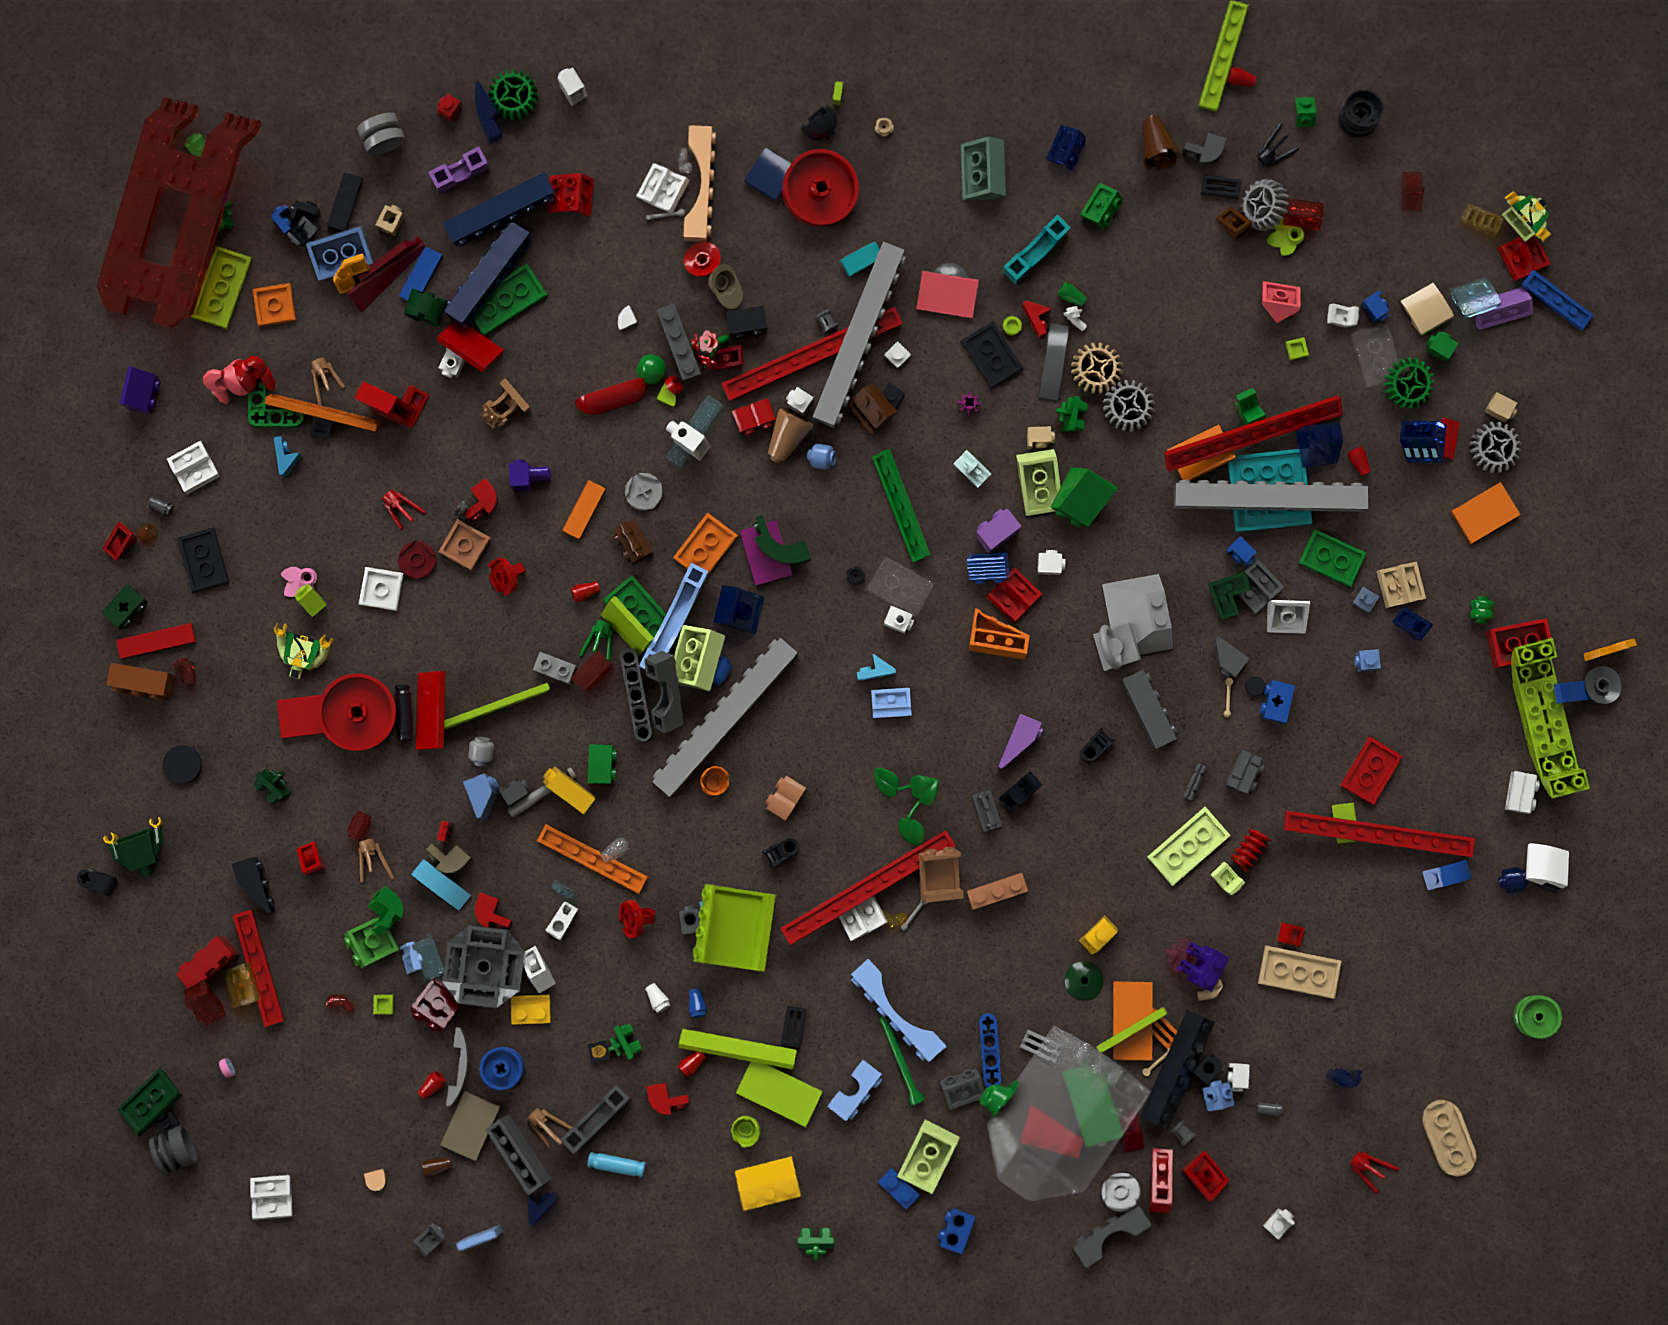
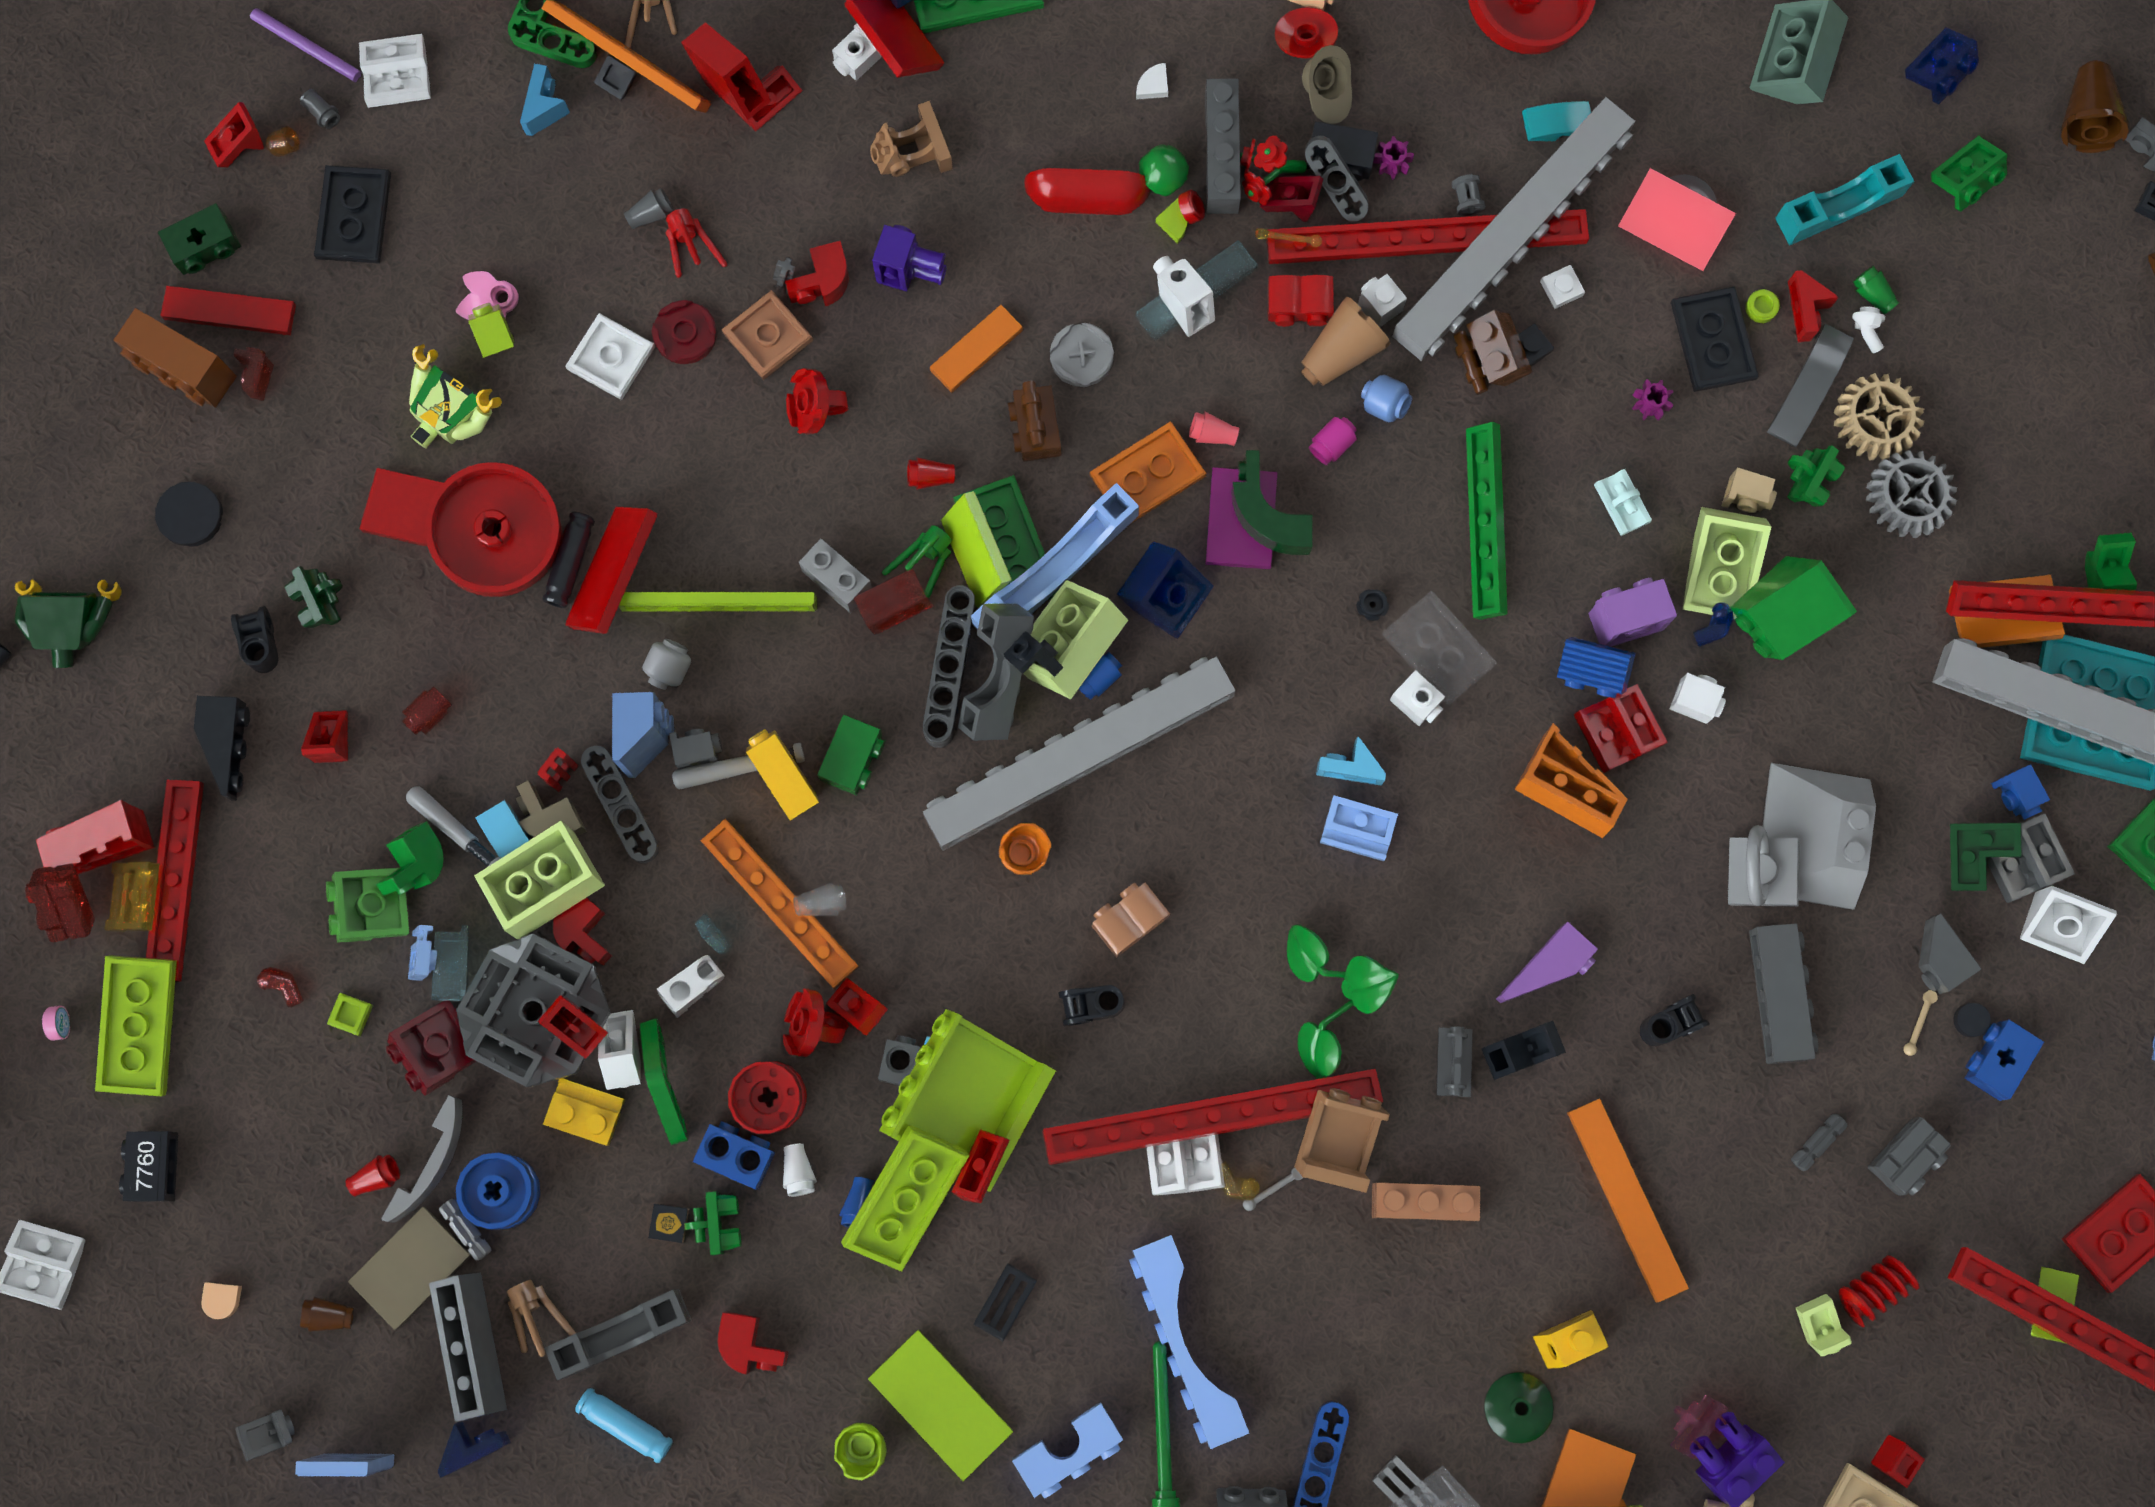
camera: 20 degrees right, 5 degrees down
(136, 471) = (305, 44): none -> medium lavender bar
(246, 817) = (254, 633): none -> black piece
(271, 1053) = (135, 1025): none -> lime tile
(309, 1124) = (149, 1166): none -> black brick
(368, 849) = (424, 754): medium nougat plant -> none
(370, 496) = (650, 208): none -> dark grey cone
(392, 881) = (441, 818): none -> light grey piece
(460, 895) = (539, 880): none -> yellowish green brick
(487, 834) = (616, 806): none -> dark grey beam
(491, 1094) = (465, 1230): none -> light grey axle
(510, 967) = (572, 1026): none -> red slope
(566, 978) = (658, 1081): none -> green beam
(620, 1007) = (732, 1162): none -> blue brick
(624, 976) = (747, 1103): none -> red wheel
(656, 899) = (857, 1006): none -> red slope
(678, 676) = (1028, 650): none -> black bracket
(691, 1063) = (812, 1301): red cone -> none
(720, 991) = (905, 1198): none -> lime tile
(732, 509) = (1212, 430): none -> coral cone
(737, 1048) = (898, 1305): lime tile -> none
(750, 380) = (1314, 240): none -> clear yellow hinge
(752, 348) = (1317, 163): none -> dark grey beam
(754, 960) = (980, 1166): none -> red slope
(780, 311) = (1385, 157): none -> magenta gear
(801, 491) = (1333, 440): none -> dark pink brick
(1048, 519) = (1718, 627): none -> clear blue arm
(1103, 850) = (1628, 1200): none -> orange tile
(1188, 846) = (1772, 1246): yellowish green tile -> none

